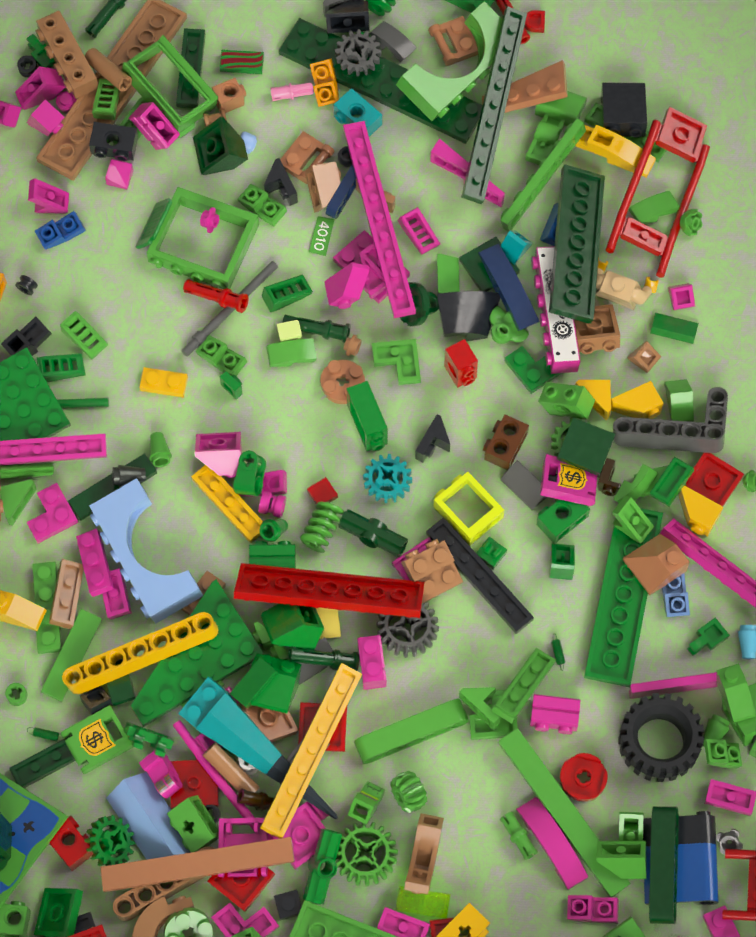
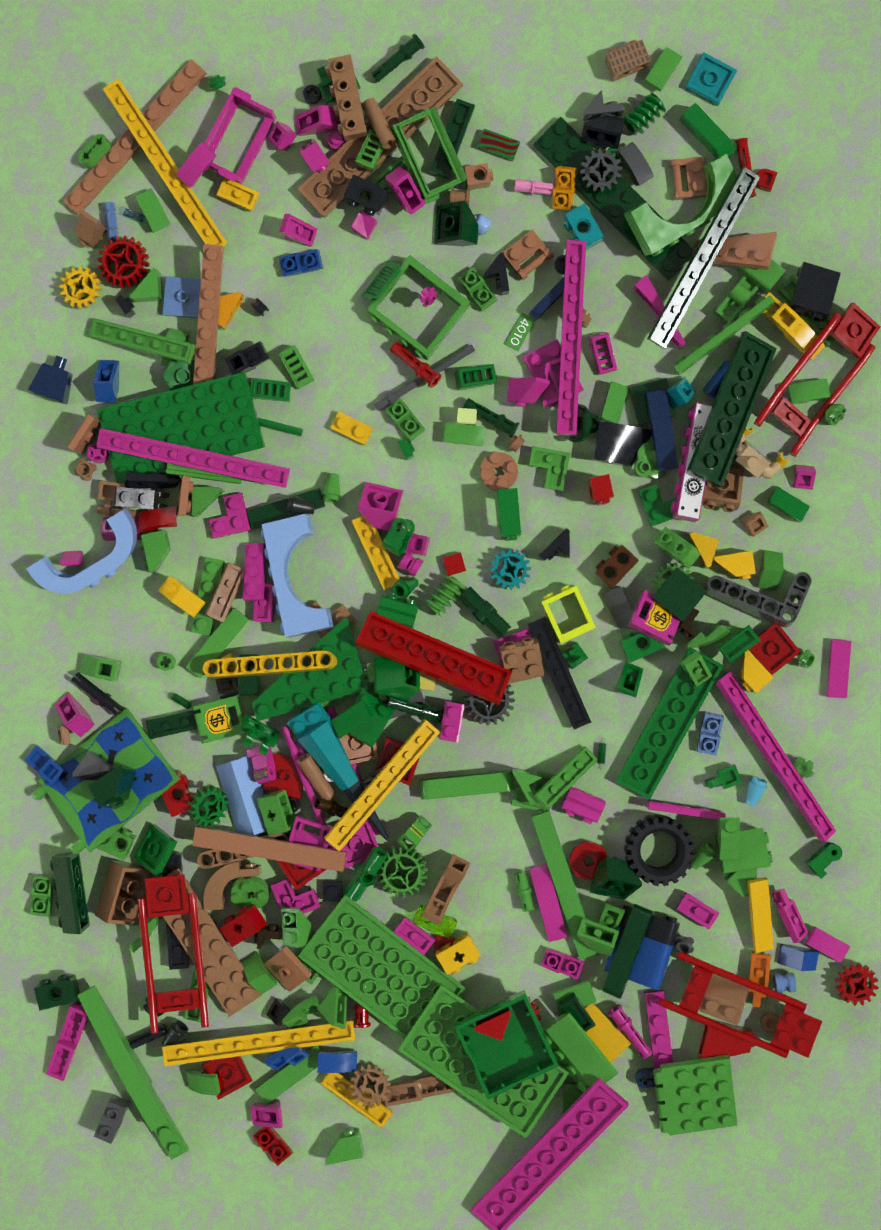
camera: 15 degrees right, 20 degrees up
(322, 183) = (534, 287): slope -> none
(408, 791) = (449, 835): bright green gear -> none
(621, 785) = (614, 879): none -> dark green slope
(657, 563) = (703, 708): nougat slope -> none
(722, 753) = (703, 877): bright green slope -> none

